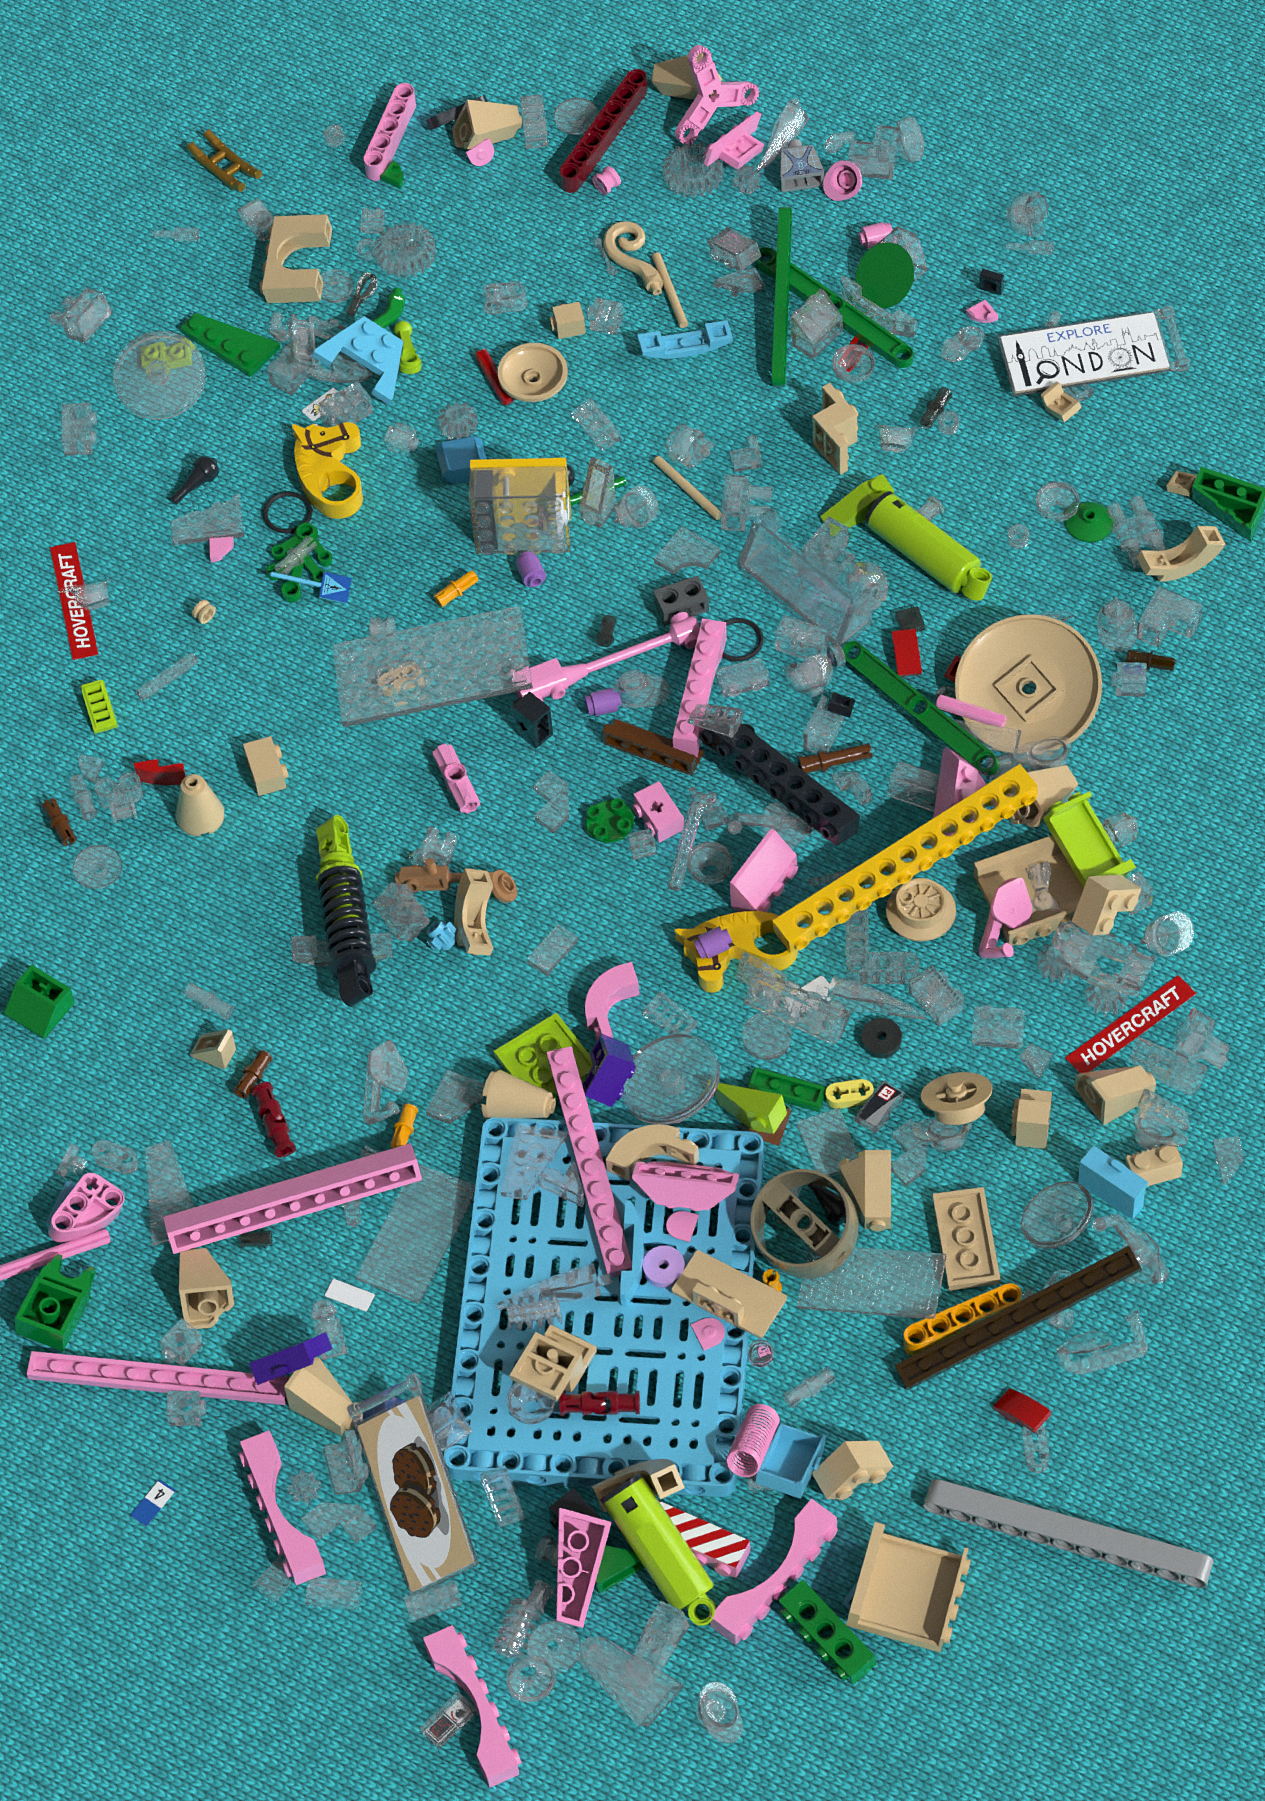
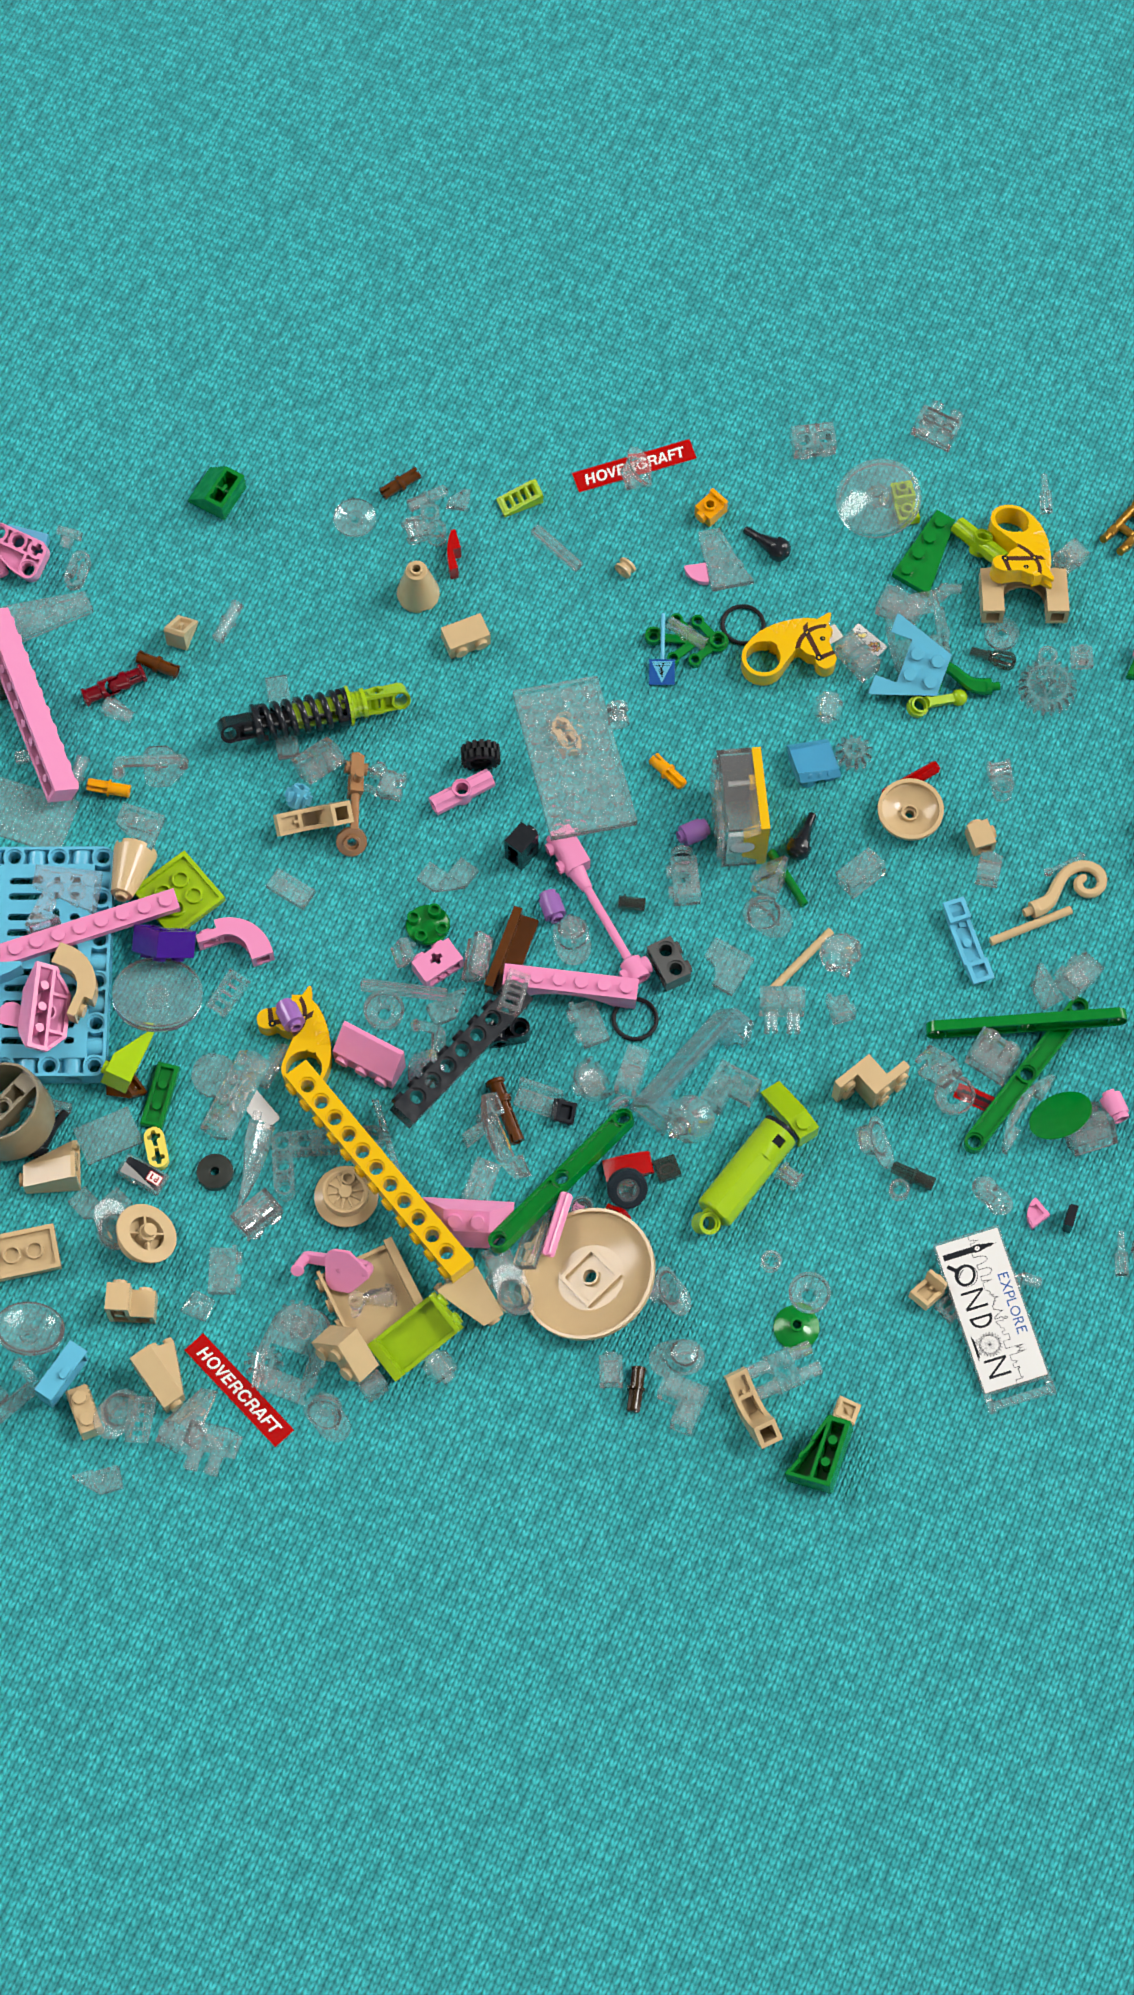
camera: 80 degrees right, 10 degrees up
(143, 527) = (710, 515): none -> light orange brick
(229, 289) = (978, 540): none -> lime piece
(243, 246) = (1028, 550): none -> yellow animal
(304, 1119) = (115, 709): none -> clear cone
(417, 754) = (480, 755): none -> black tyre
(555, 581) = (681, 850): none -> clear tile
(587, 580) = (684, 868): none -> clear brick
(650, 770) = (477, 957): none -> clear bracket
(824, 368) = (939, 1067): none -> clear hinge
(894, 754) = (497, 1139): none -> clear slope
(932, 650) = (622, 1181): none -> black wheel

